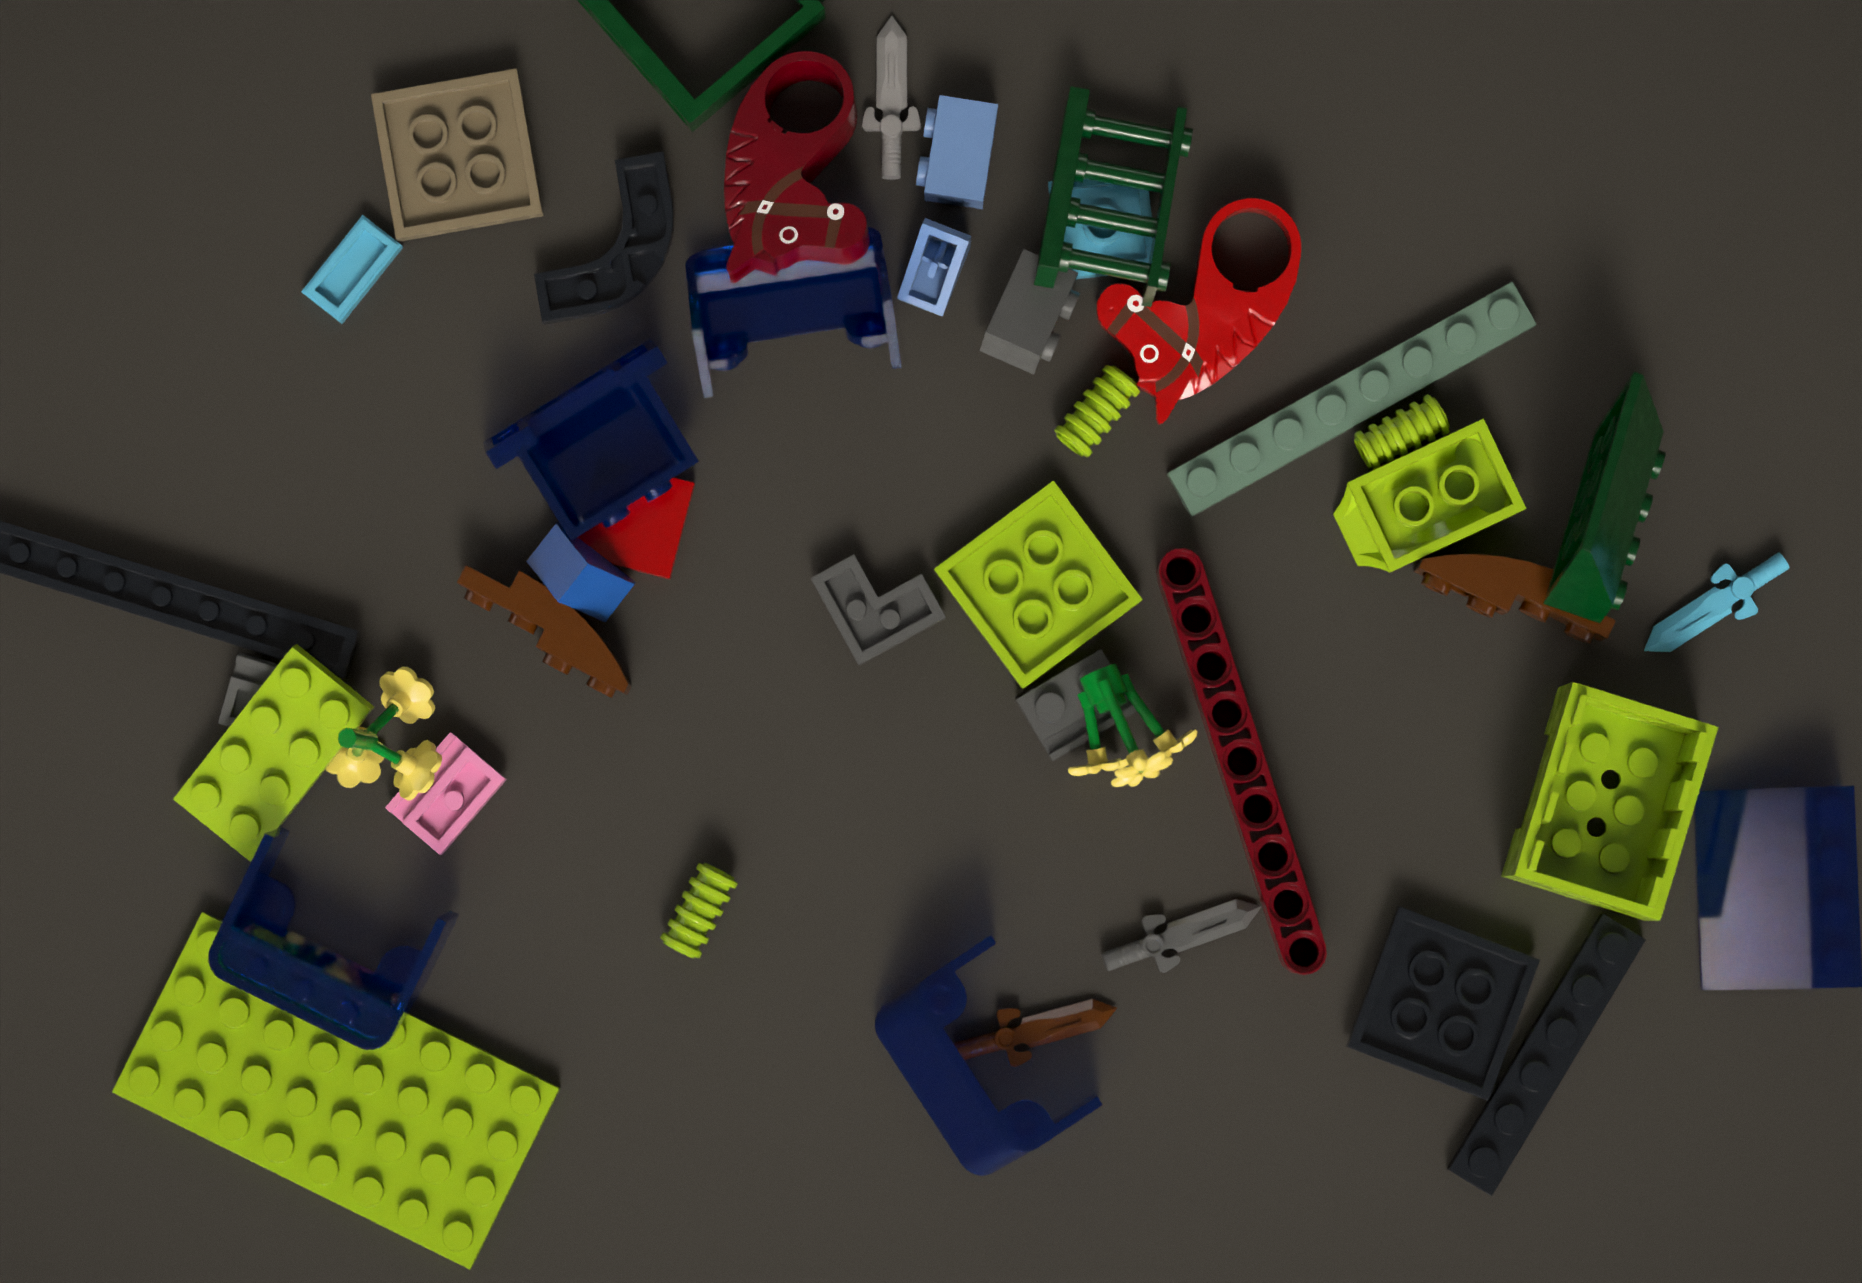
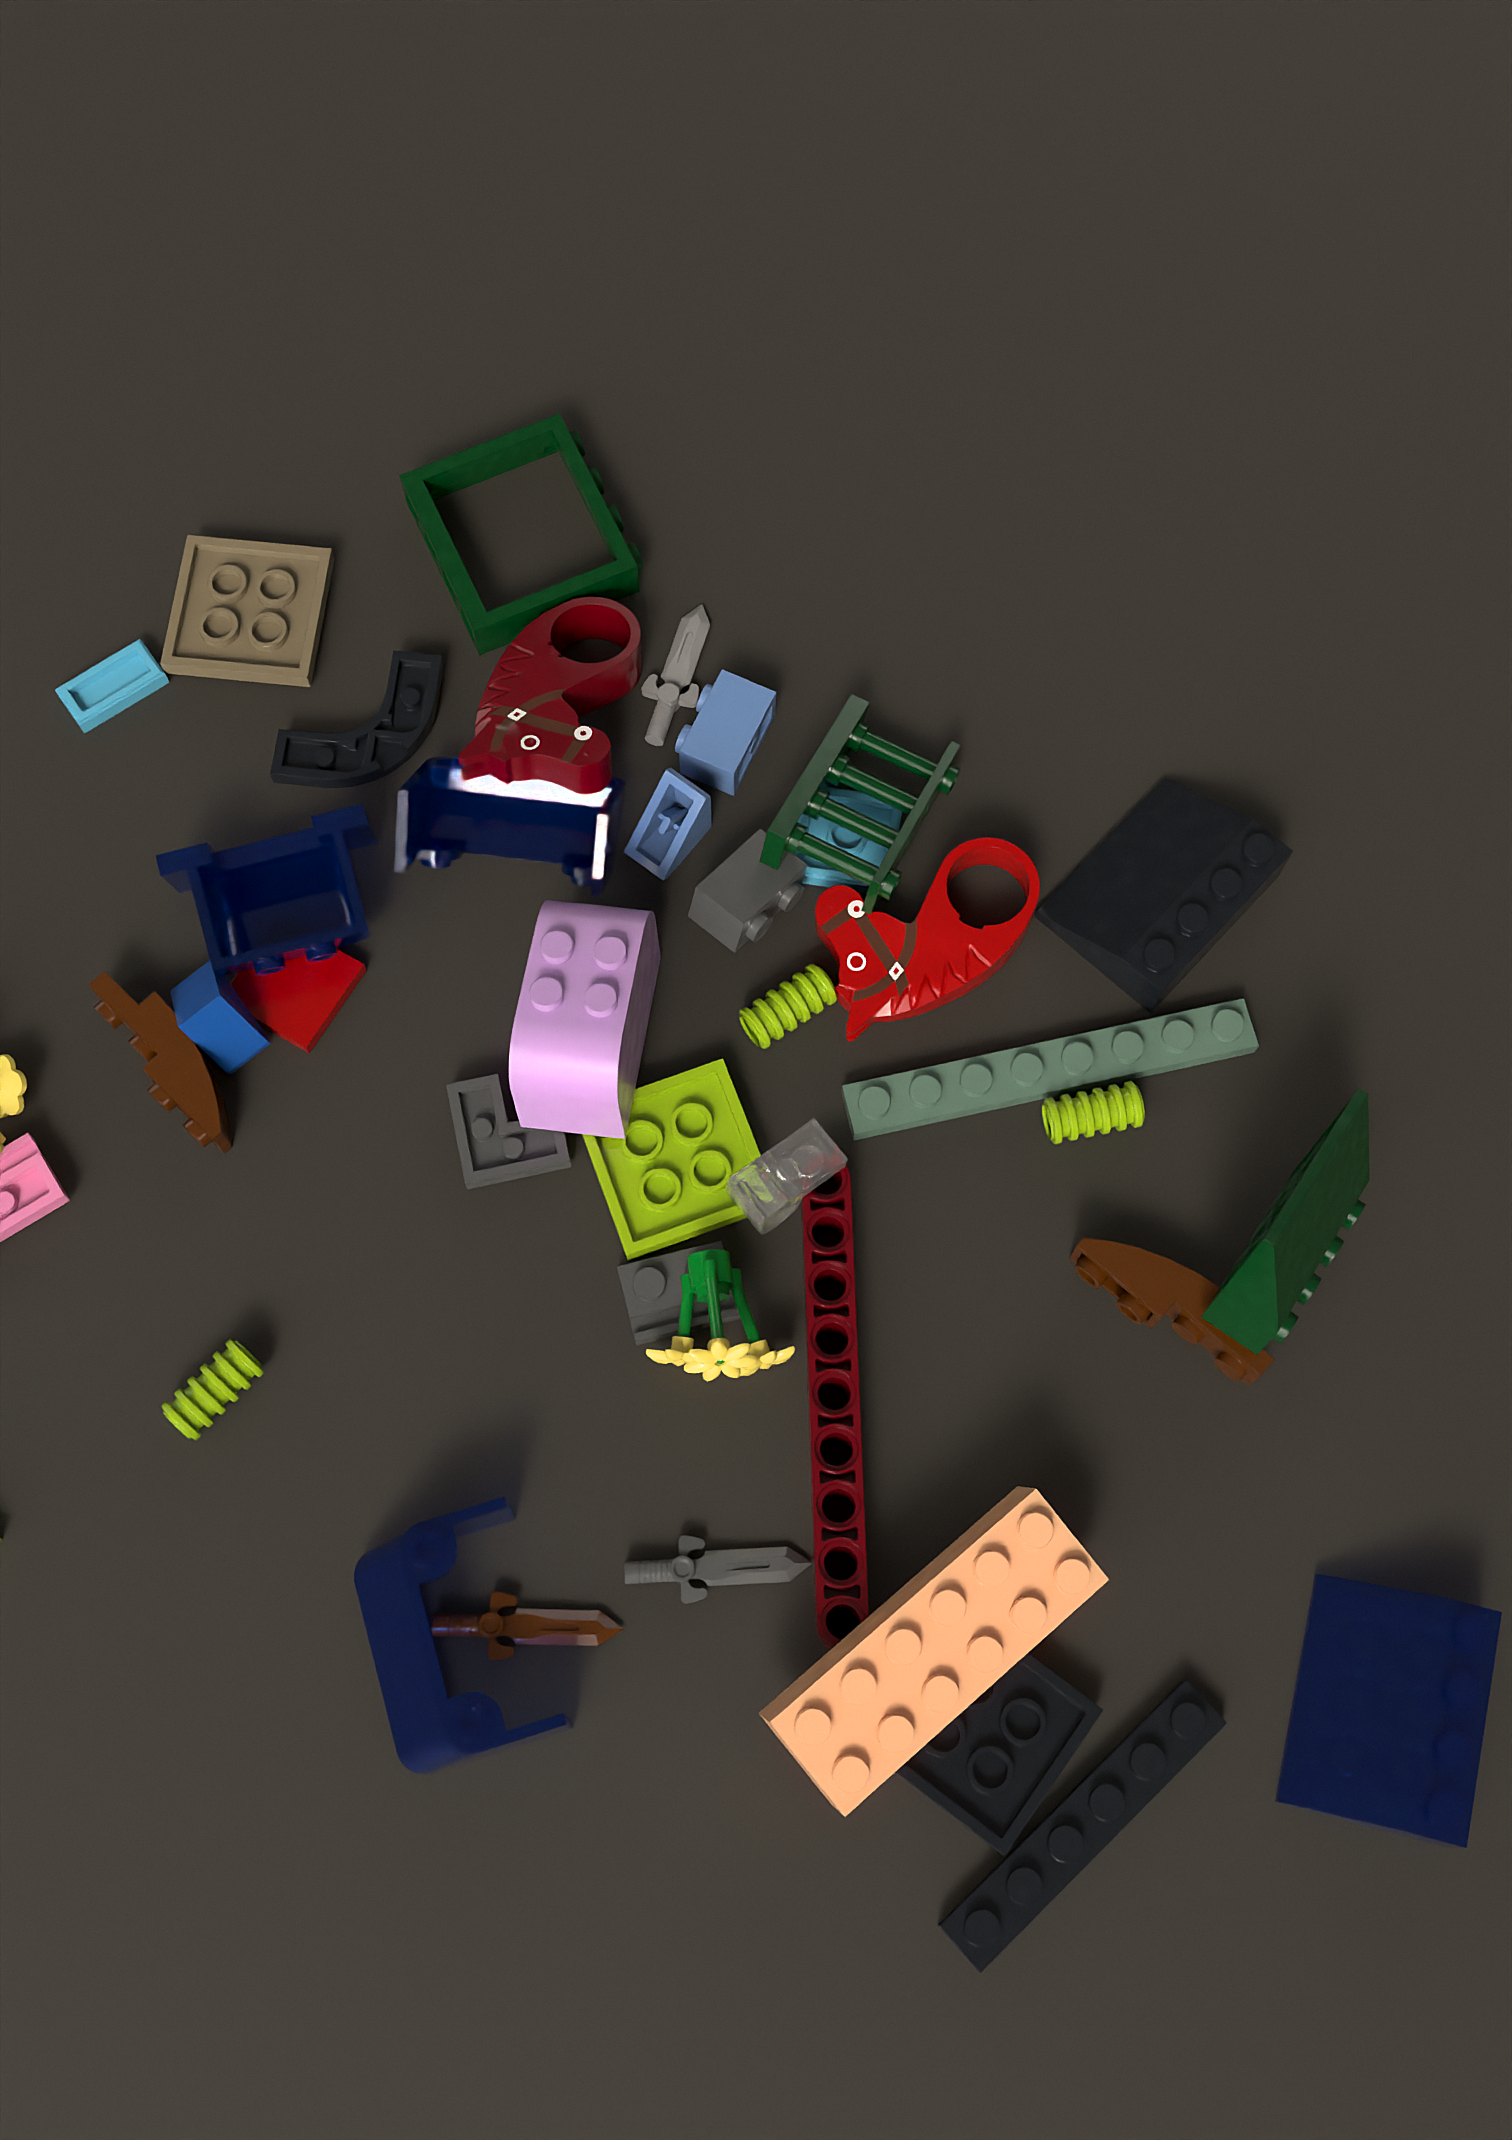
camera: 15 degrees right, 15 degrees down
(922, 485) = (583, 1017): none -> lavender brick
(1147, 580) = (778, 1179): none -> clear plate
(1387, 952) = (933, 1648): none -> light nougat brick
(1411, 192) = (1164, 890): none -> black slope
(1427, 500) = (1104, 1183): lime slope -> none
(1644, 817) = (1287, 1531): lime container -> none
(1715, 604) = (1383, 1380): medium azure sword -> none

